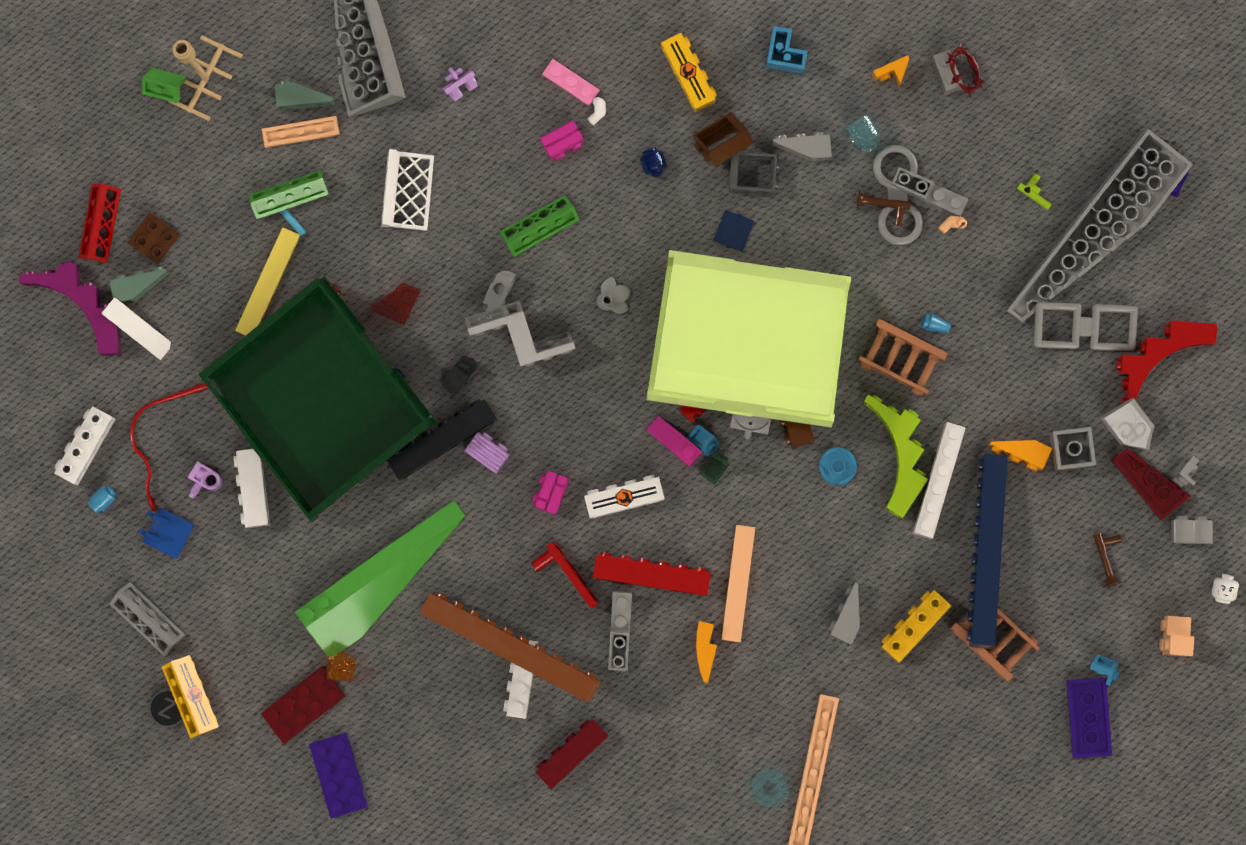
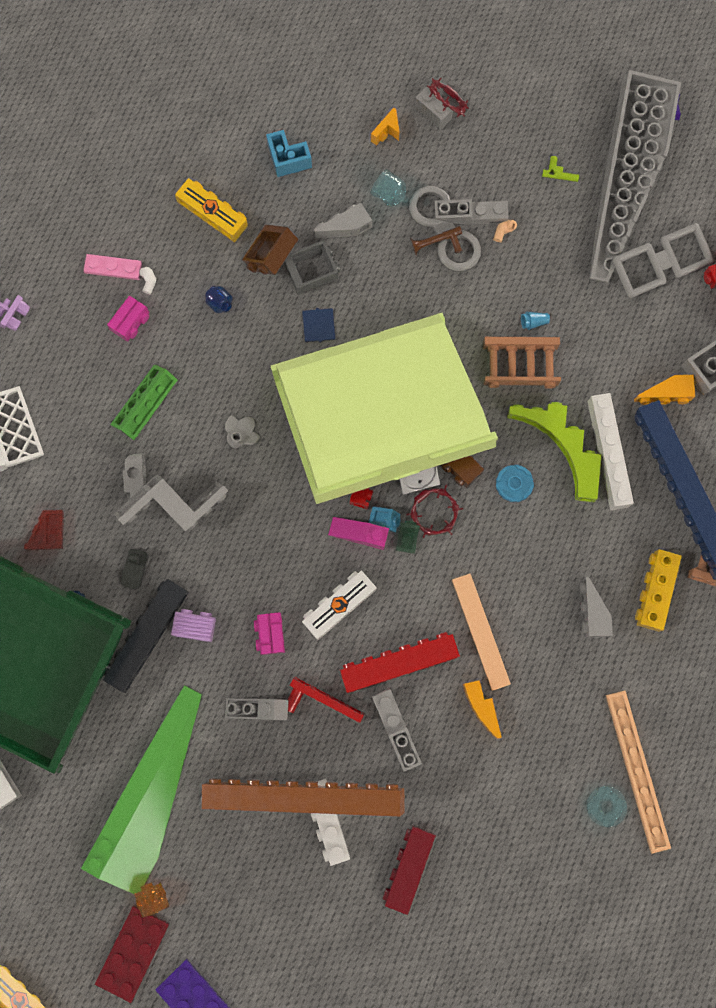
camera: 30 degrees left, 5 degrees down
(507, 552) = (256, 709): none -> light grey slope
(745, 437) = (420, 497): none -> dark red piece

